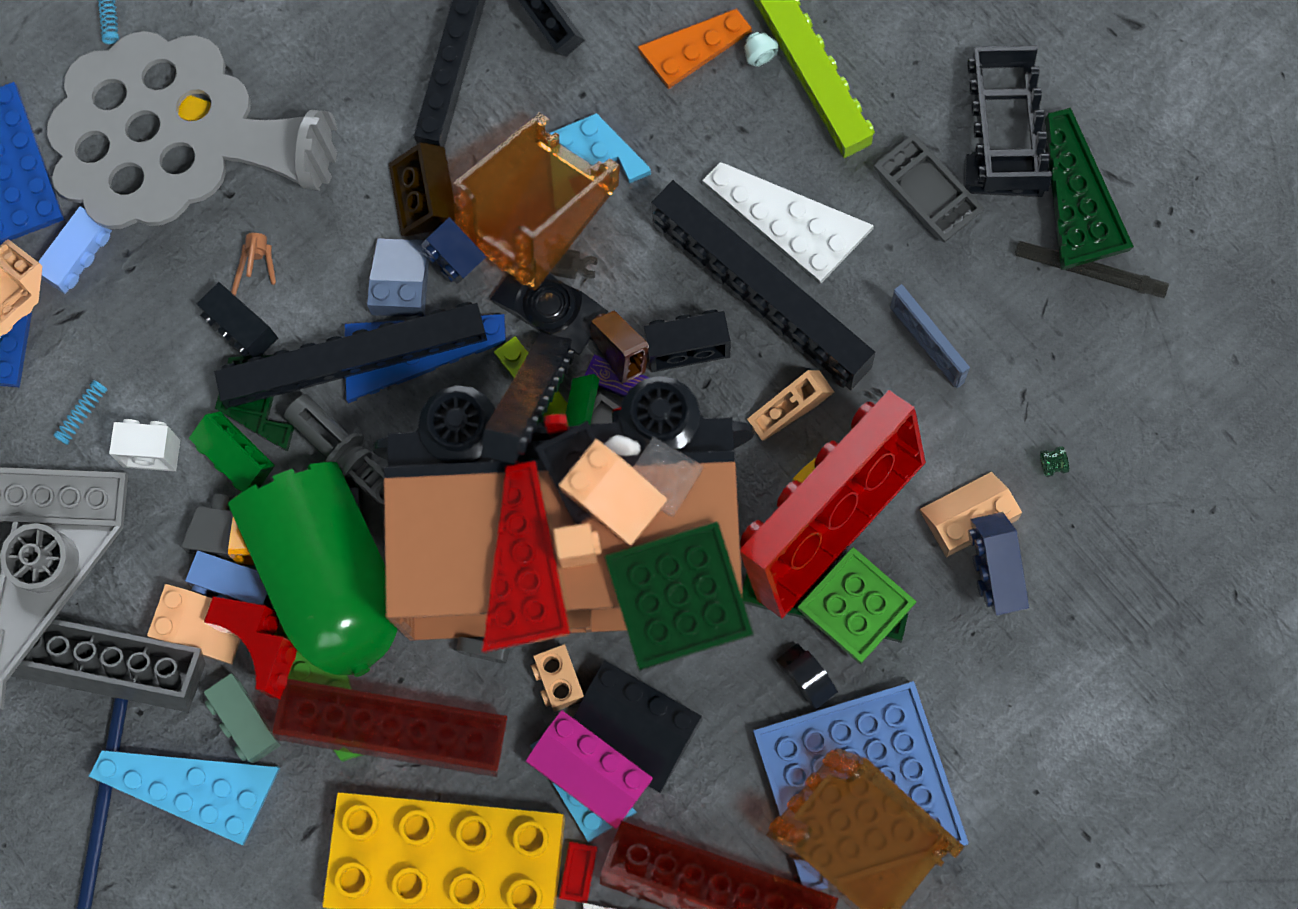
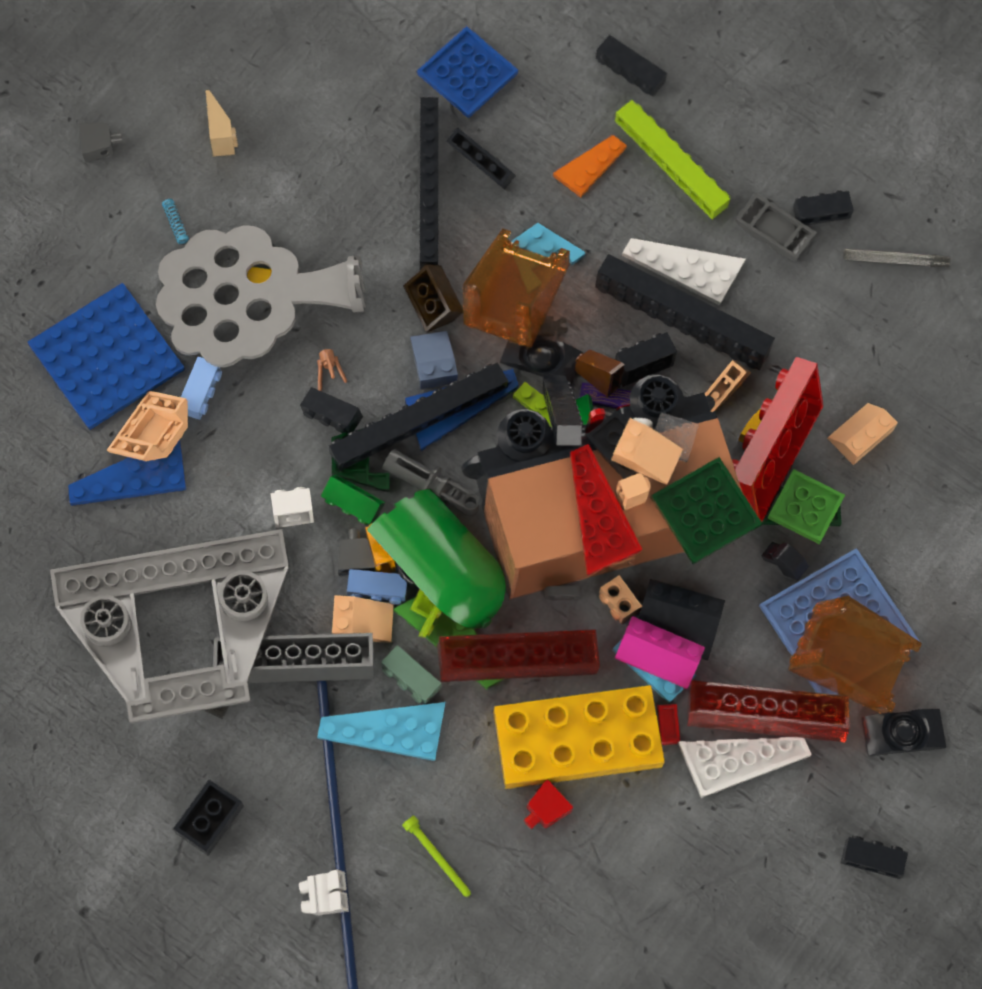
camera: 25 degrees left, 5 degrees down
(58, 435) = (244, 478): medium azure piece -> none
(256, 628) = (410, 608): red arch -> none
(452, 251) = (469, 332): dark blue brick -> none
(760, 49) = (637, 157): light aqua cone -> none
(929, 336) = (804, 322): sand blue tile -> none
(998, 563) = (893, 457): dark blue brick -> none
(1009, 57) = (814, 129): black window -> none
(1054, 461) = (907, 386): clear green wheel -> none
(1083, 207) = (880, 218): dark green wing -> none

